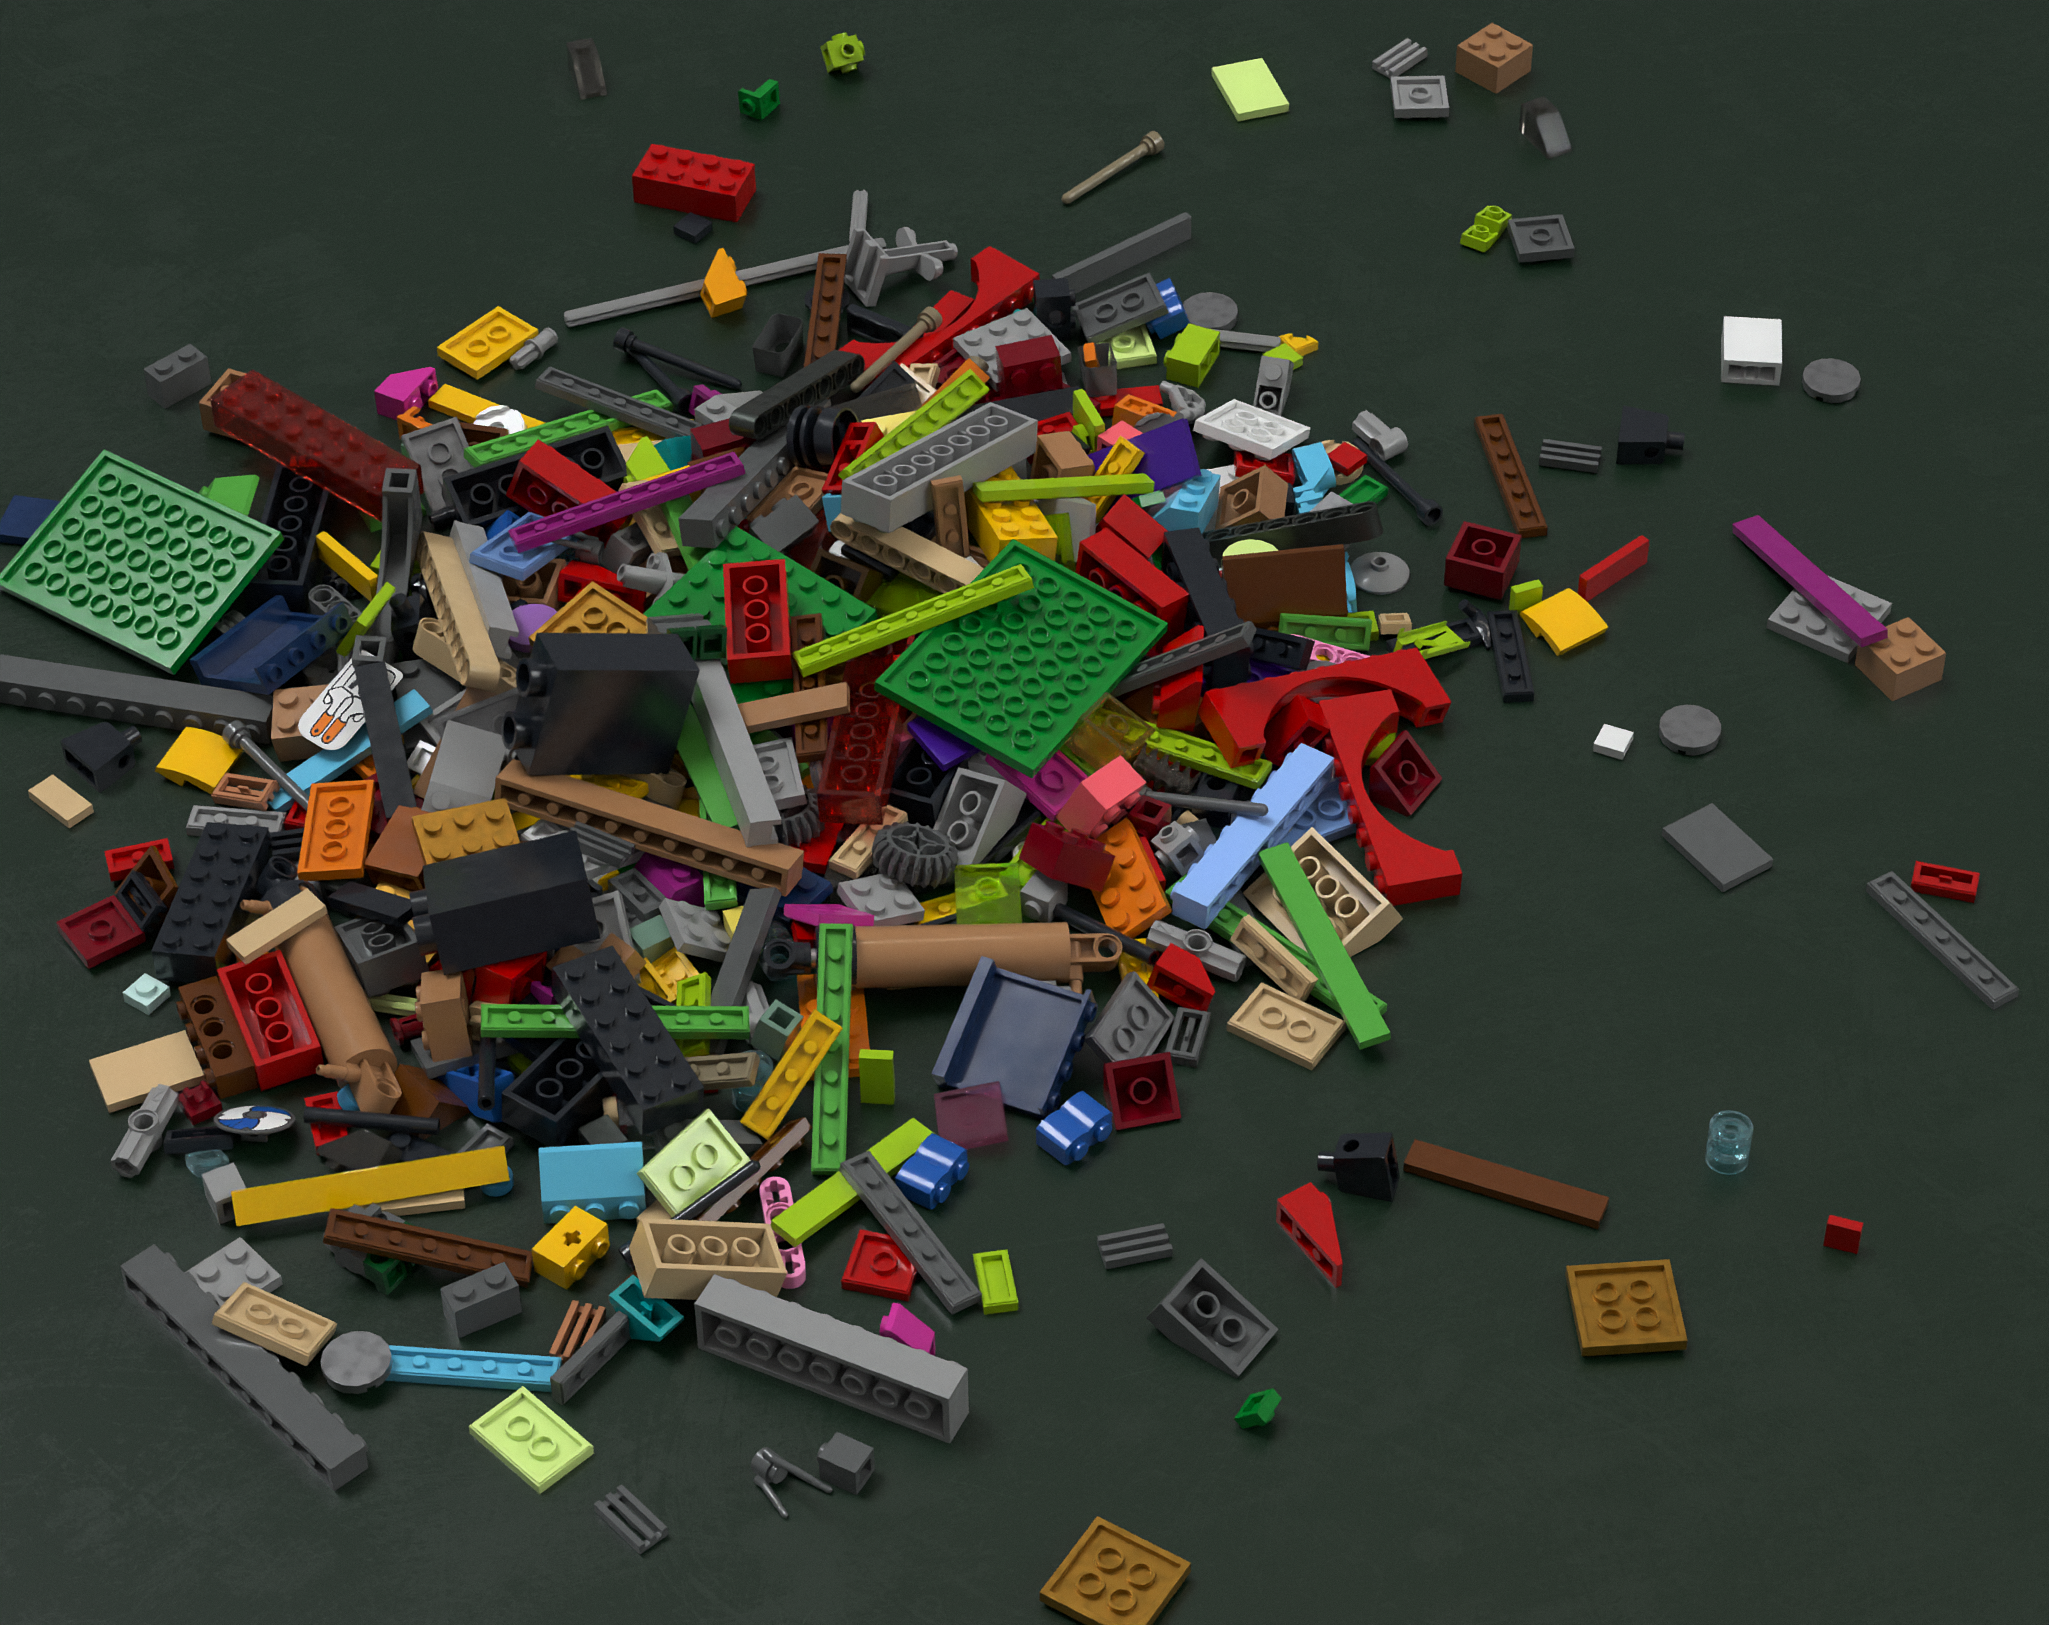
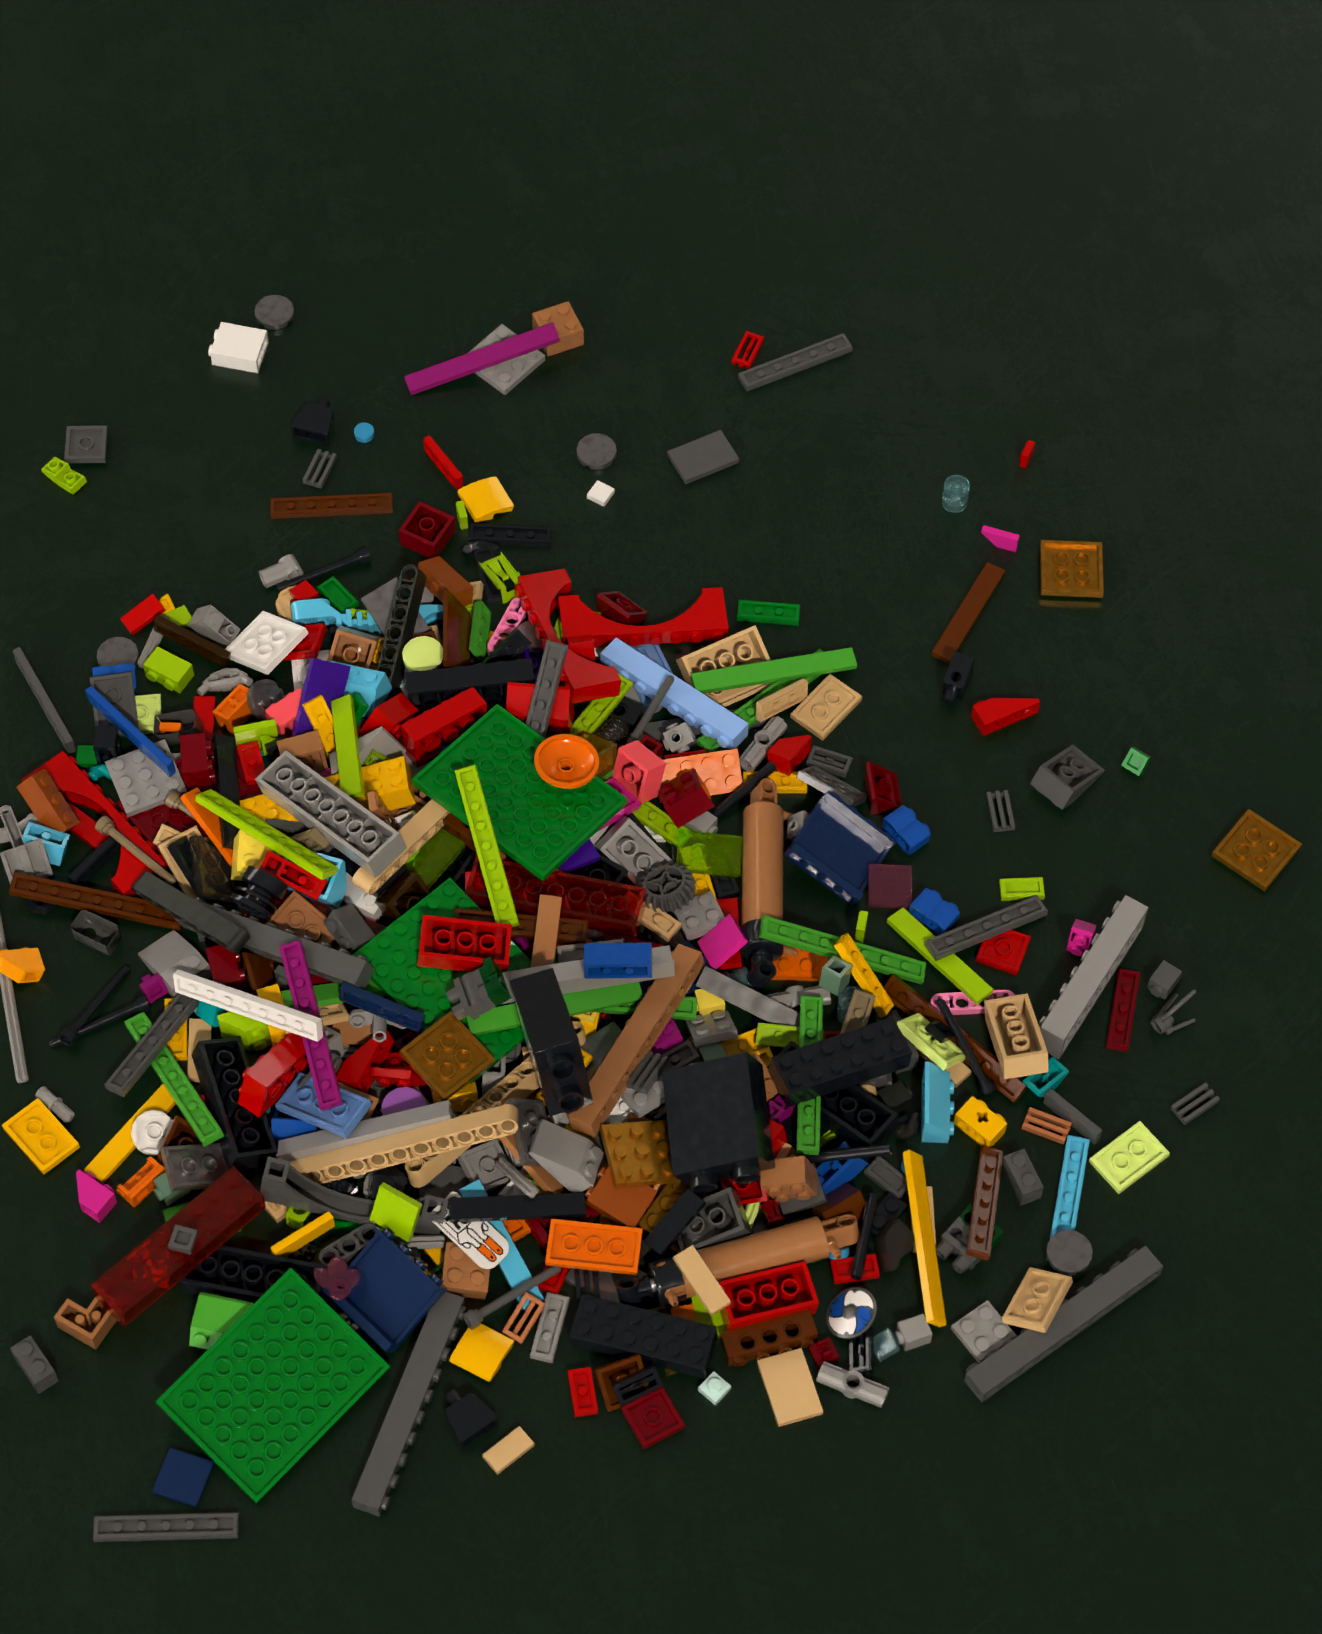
camera: 85 degrees left, 15 degrees up
(287, 597) = (337, 1275): none -> clear pink plate
(306, 424) = (183, 1239): none -> dark grey plate
(417, 742) = (517, 1177): none -> light grey axle
(652, 448) = (248, 1005): none -> white plate
(658, 563) = (382, 1007): none -> dark blue tile
(710, 1173) = (939, 1031): none -> black tile
(740, 757) = (618, 960): none -> blue brick
(790, 1419) = (1123, 1010): none -> dark red tile
(899, 279) = (53, 840): none -> medium azure slope
(949, 265) = (47, 802): none -> dark orange brick
(1065, 680) = (567, 753): none -> orange dish
(1073, 303) = (130, 731): none -> blue tile
(1239, 361) = (192, 641): none -> dark brown tile
(1276, 322) = (142, 614): none -> red tile
(1392, 583) = (442, 577): none -> dark orange brick
(1445, 946) = (768, 612): none -> green tile
(1646, 490) = (364, 432): none -> dark azure tile
(1659, 1208) = (1001, 538): none -> dark pink tile

